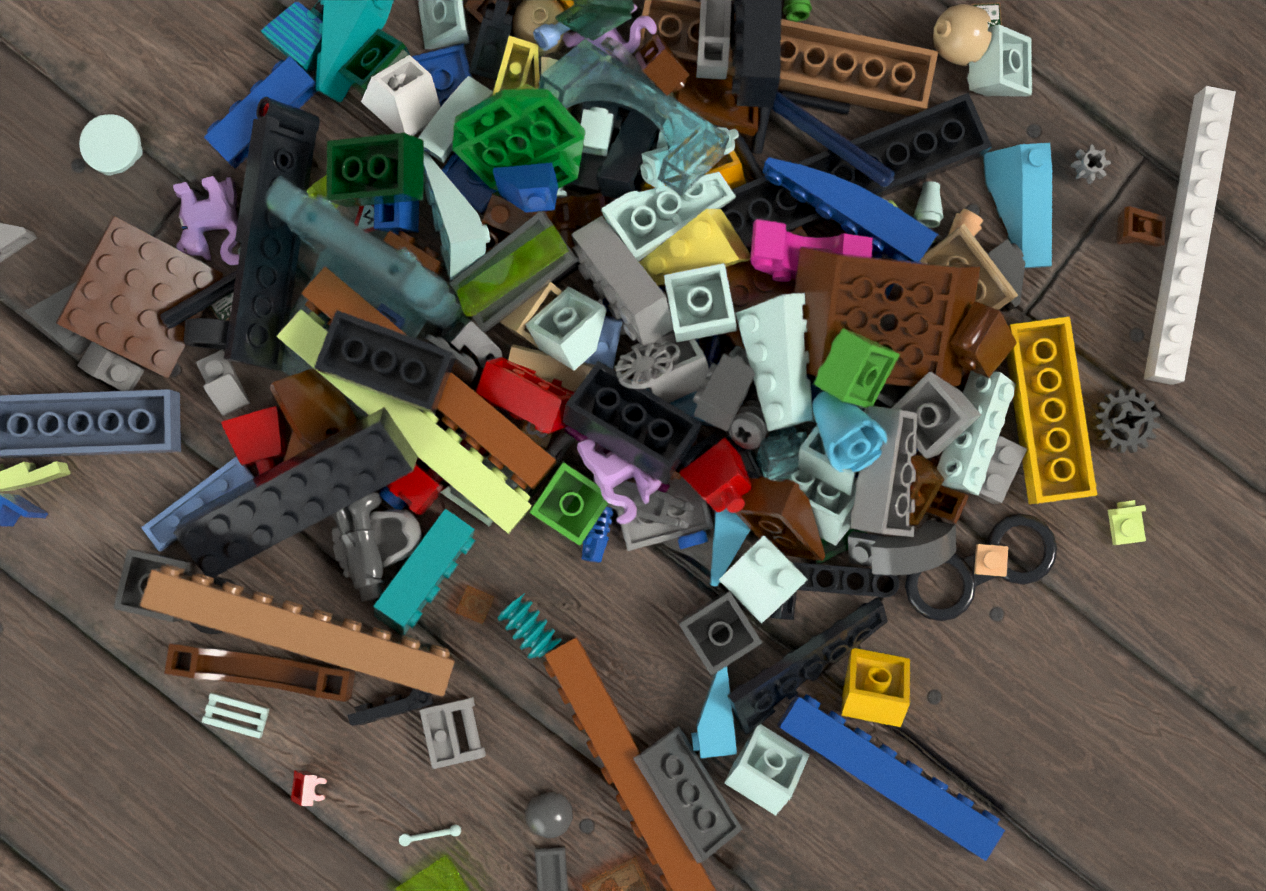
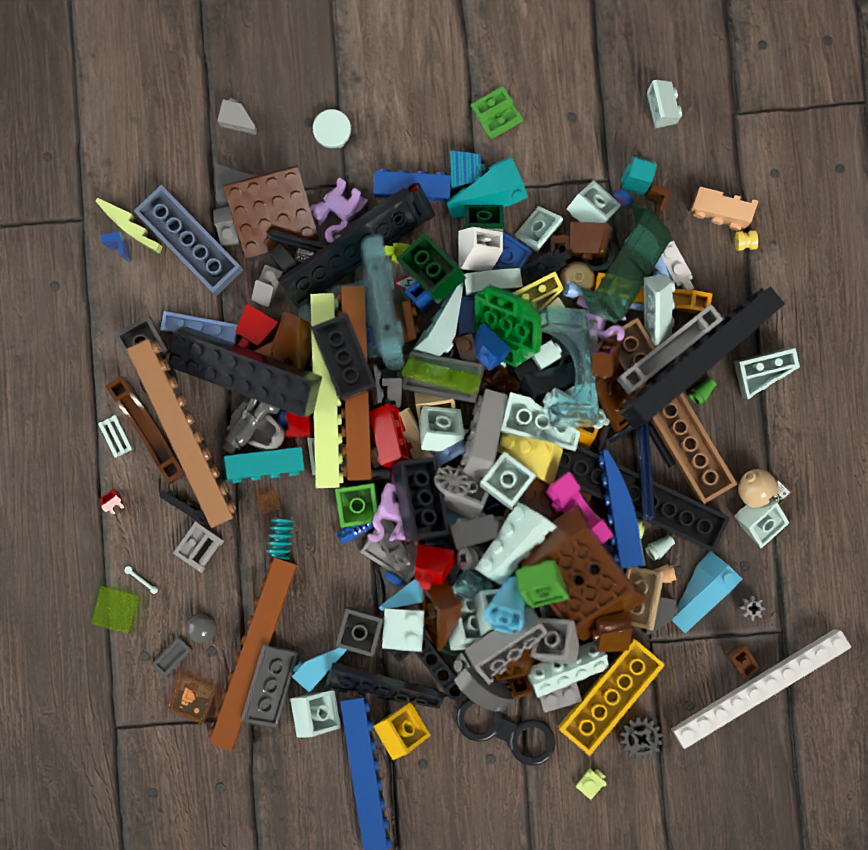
camera: 50 degrees right, 0 degrees up
(991, 560) = (512, 732): light nougat plate -> none

